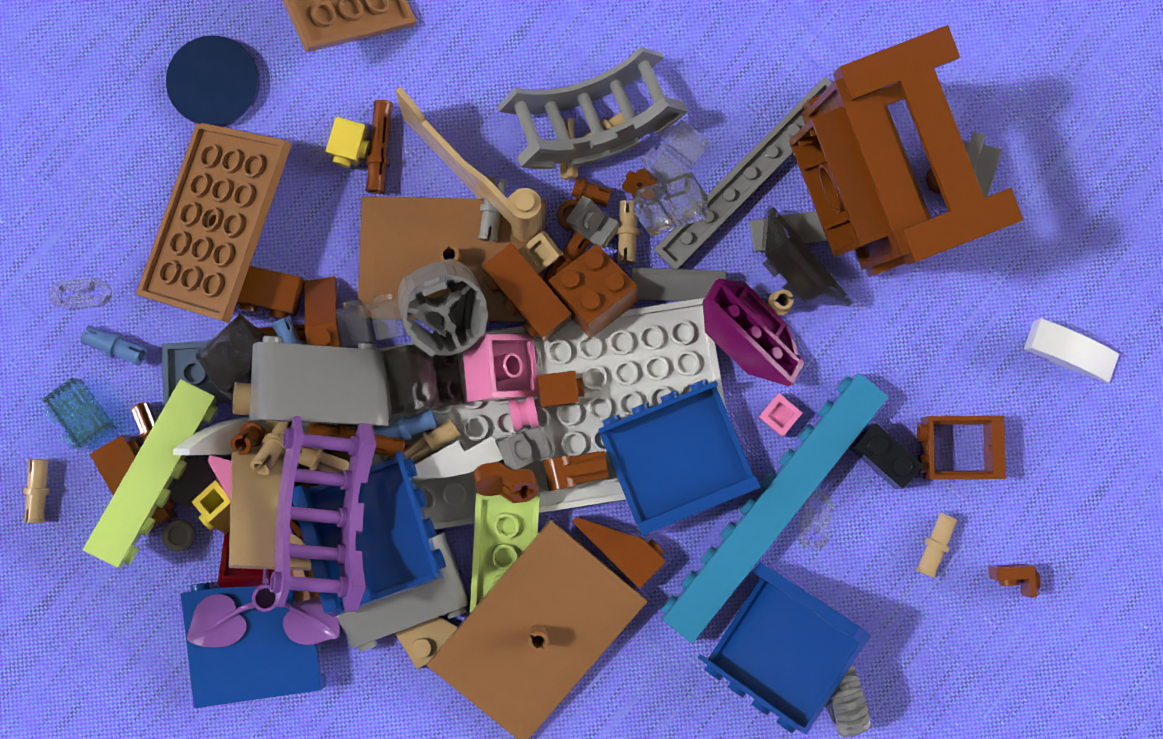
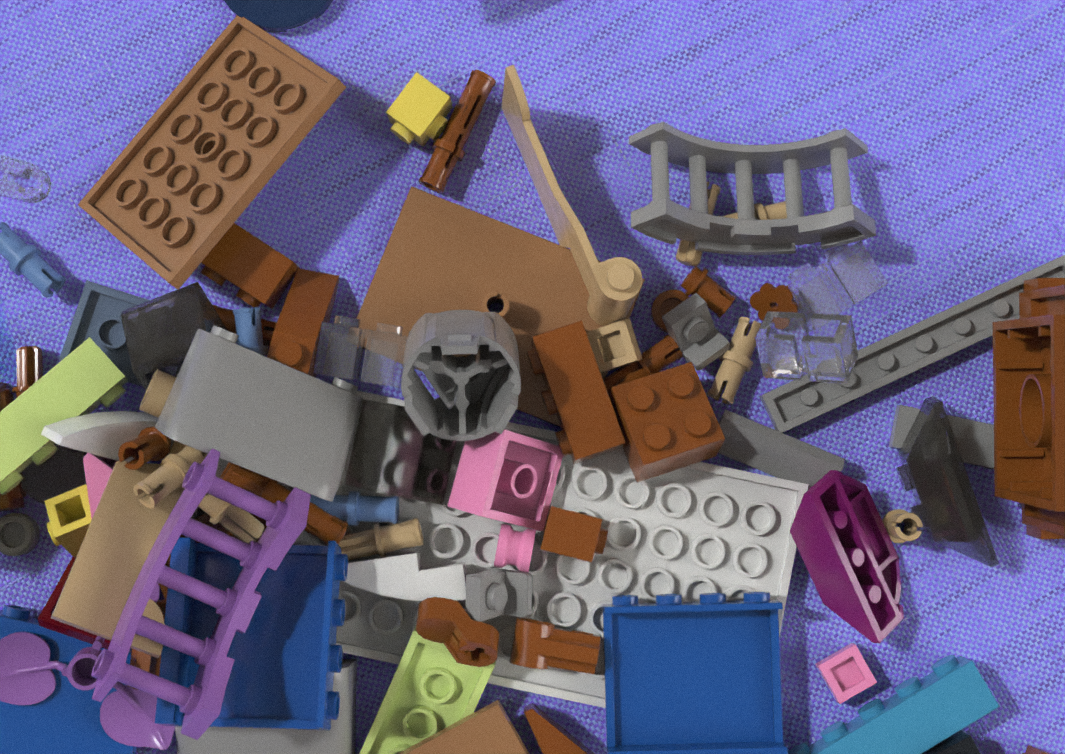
camera: 20 degrees right, 0 degrees up
(491, 215) = (567, 273): light grey pin -> none

